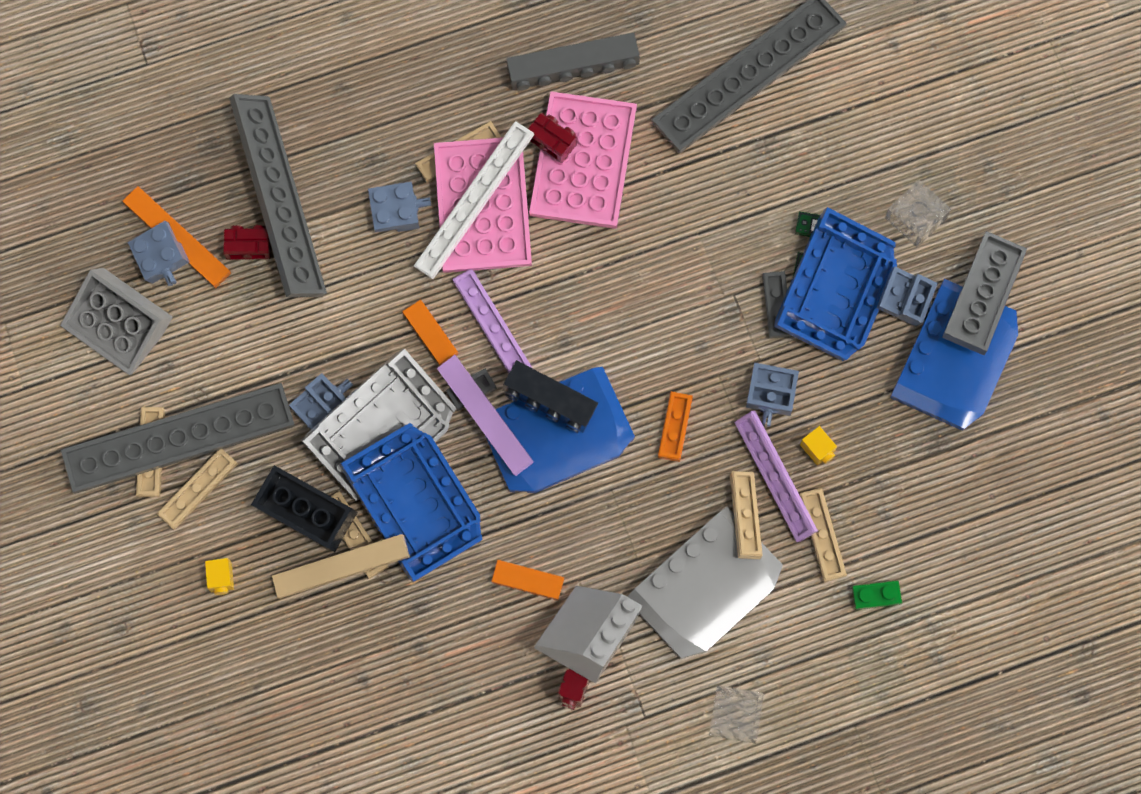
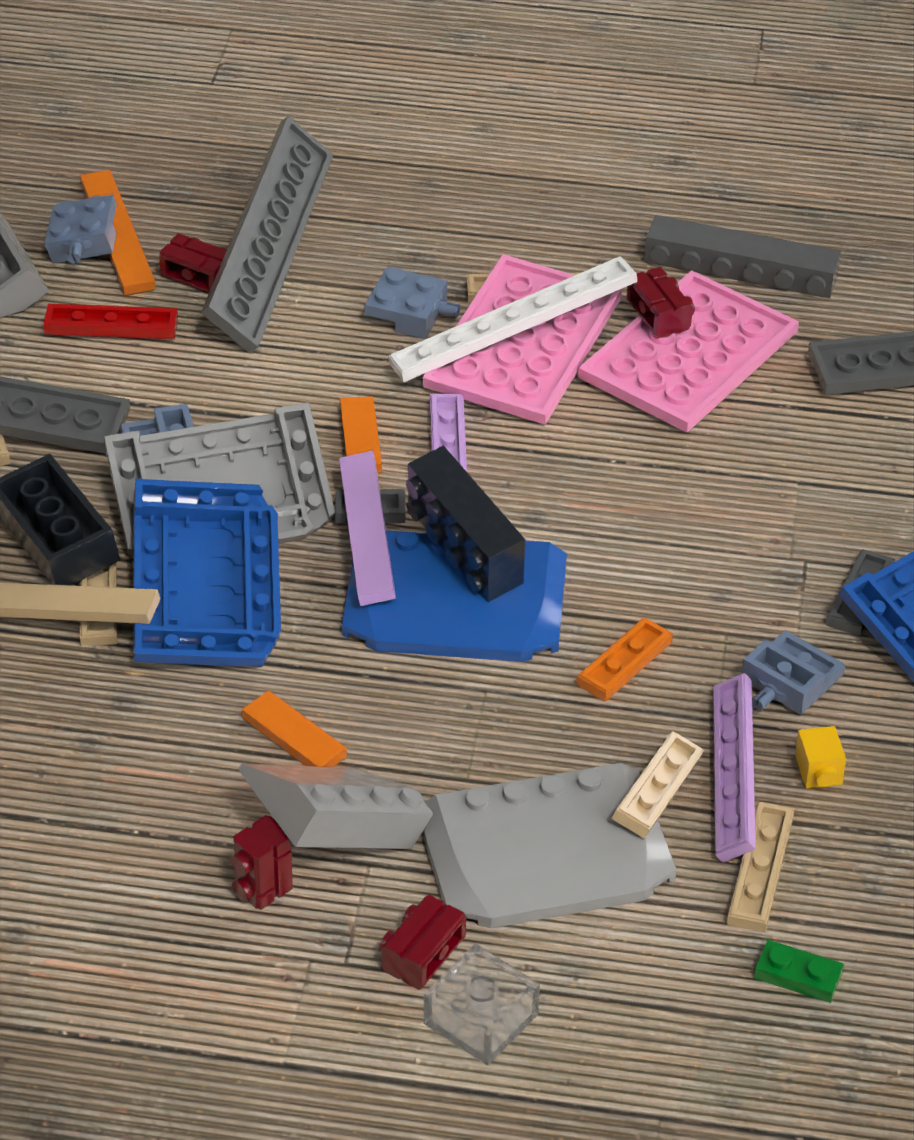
camera: 25 degrees right, 30 degrees down
(225, 320) = (111, 321): none -> red plate
(681, 686) = (422, 941): none -> dark red brick

